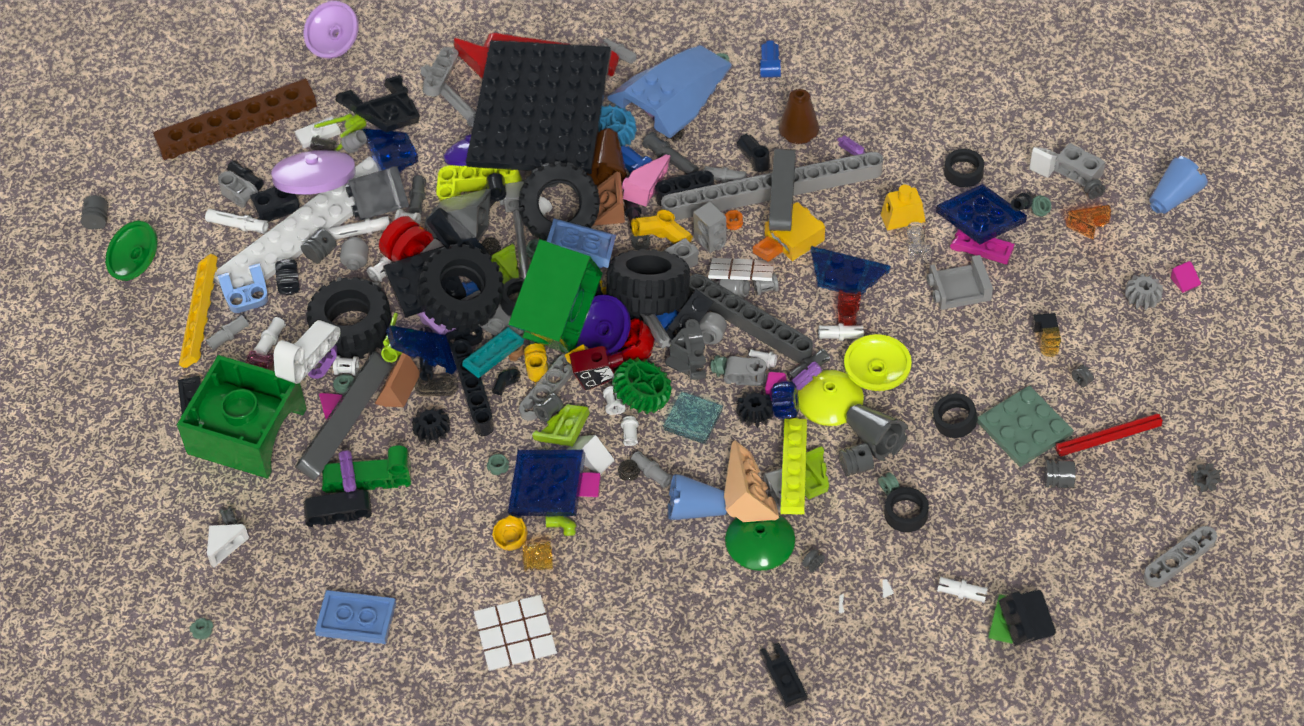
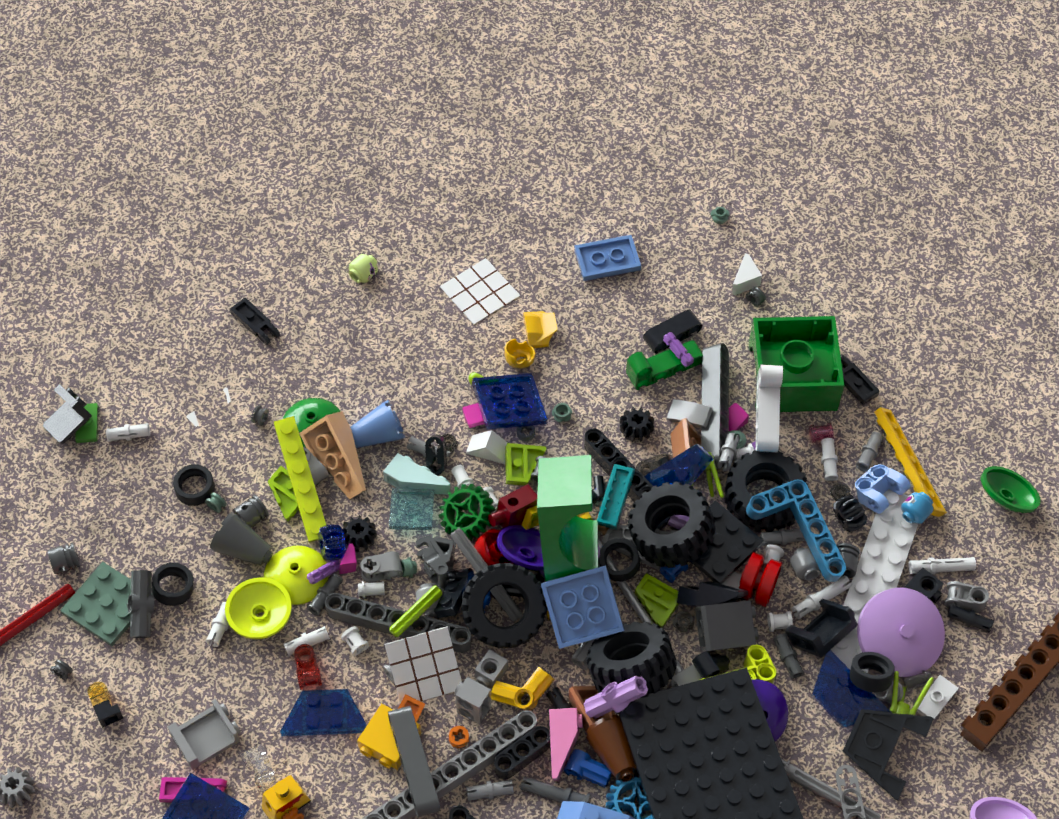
camera: 155 degrees right, 5 degrees up
(226, 255) = (917, 507): none -> dark azure head
(281, 311) = (834, 492): none -> clear smoke plate
(341, 275) = (804, 521): none -> dark azure beam
(349, 133) = (870, 682): none -> black tyre
(363, 354) = (728, 452): none -> light grey pin
(375, 412) = (695, 413): none -> light grey slope
(472, 562) = (539, 328): none -> yellow slope
(537, 556) = (488, 343): clear yellow piece -> none
(581, 157) = (615, 697): none -> lavender piece
(634, 696) = (363, 268): none -> yellowish green head
(647, 451) = (431, 455): none -> black beam
(682, 445) = (406, 474): none -> light aqua slope
(730, 305) = (415, 611): none -> lime axle
(795, 317) = (354, 640): none -> white bush
(919, 370) = (219, 626): none -> white pin
(991, 400) = (140, 604): none -> dark grey piece

